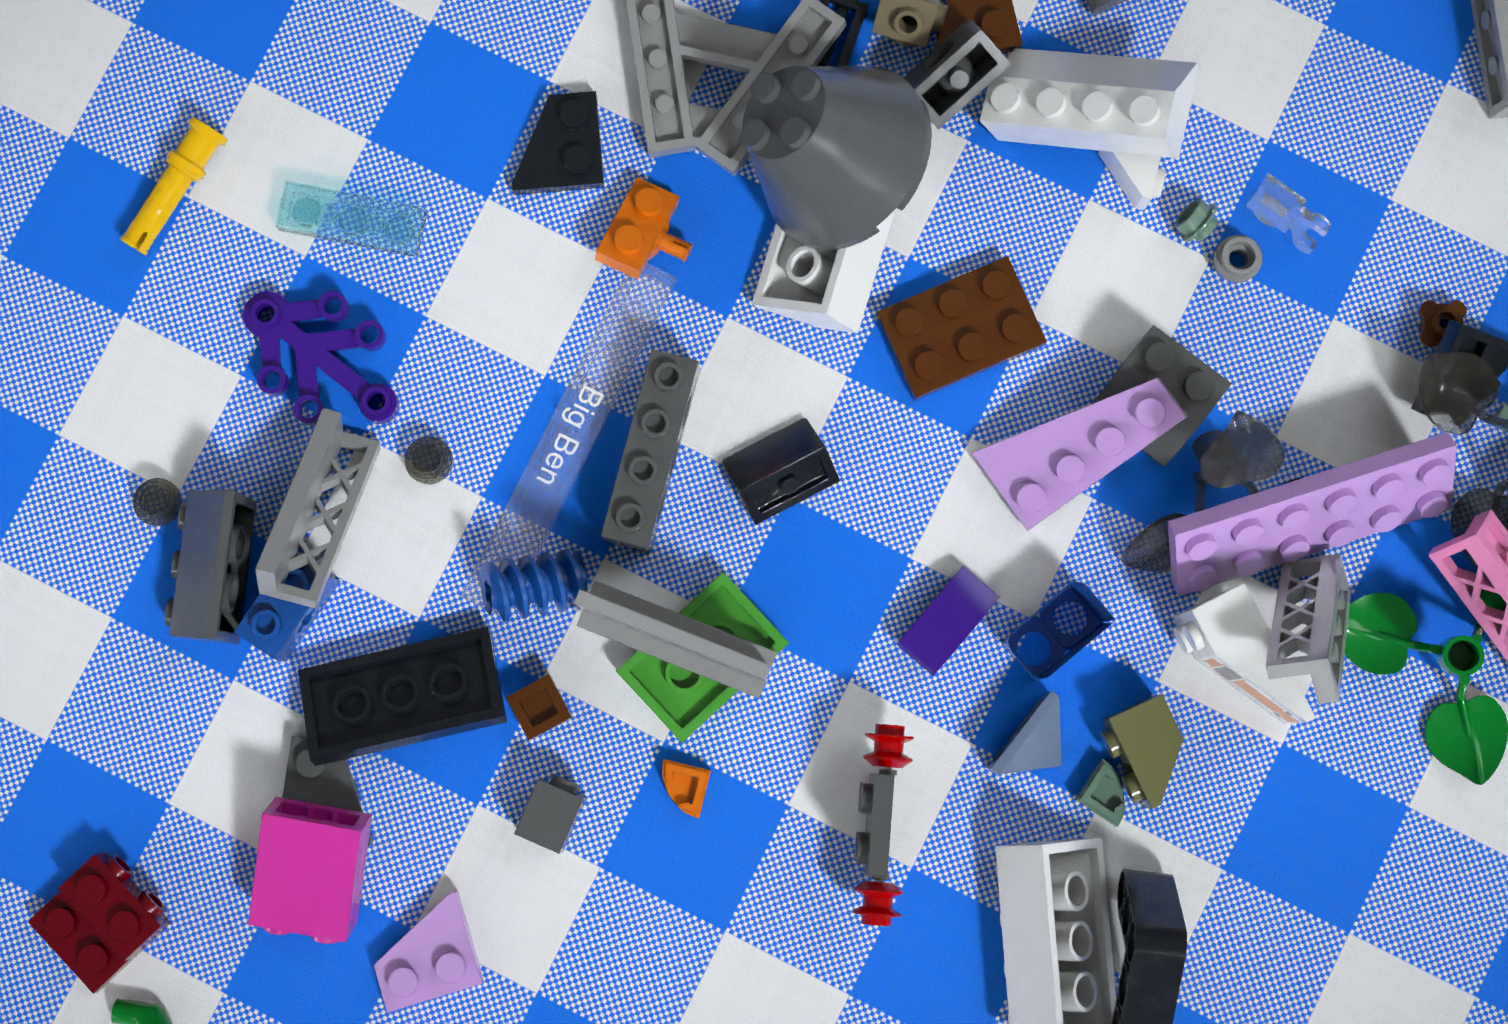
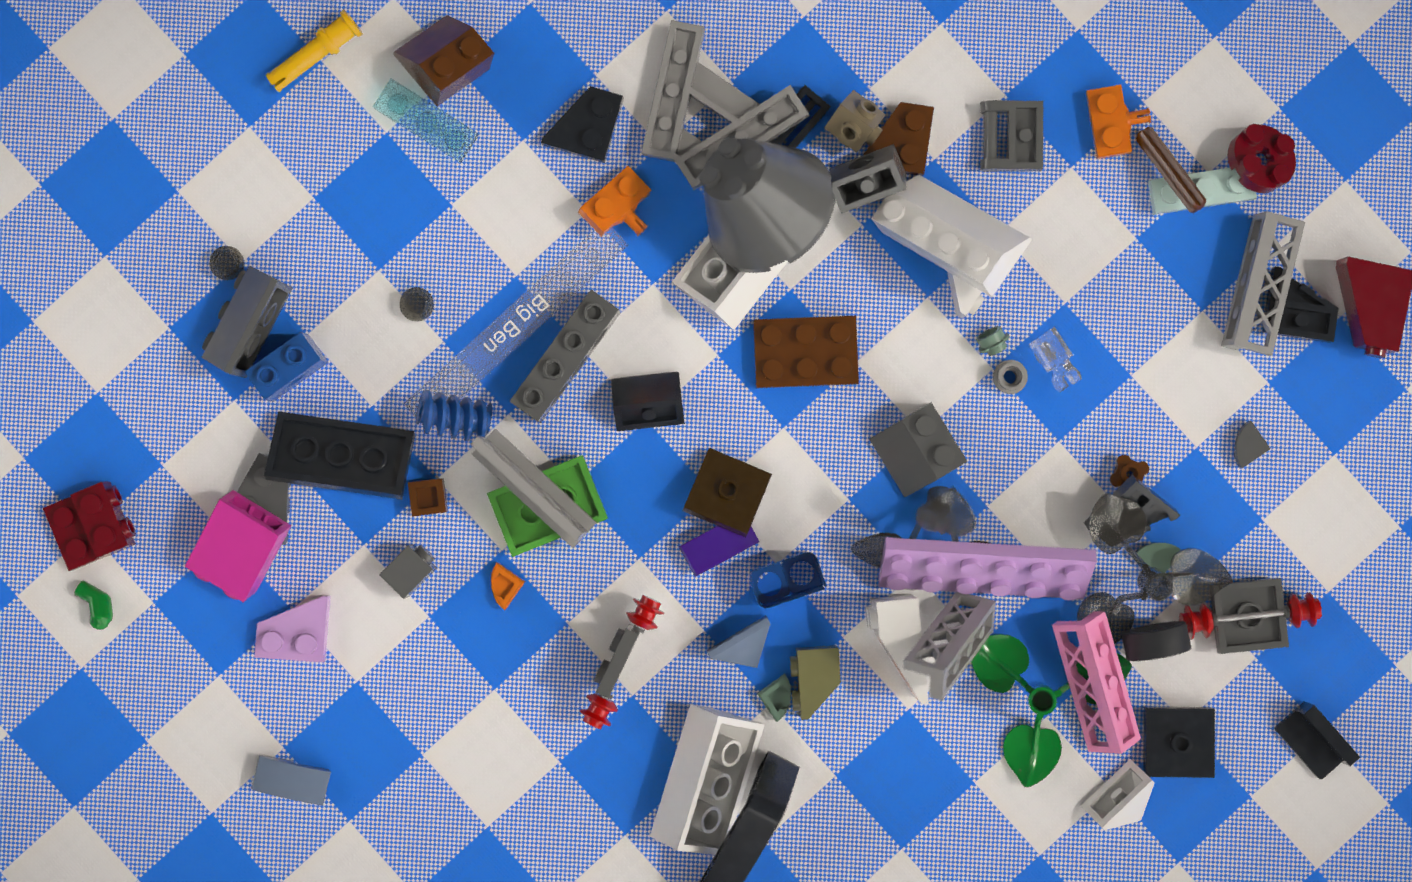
camera: 25 degrees right, 5 degrees up
(300, 503) = (318, 304): light grey fence -> none
(314, 351) = (367, 202): dark purple plant -> none
(348, 128) = (445, 58): none -> slope
(932, 548) = (727, 492): none -> dark brown plate
(1067, 455) = (839, 466): lavender wing -> none

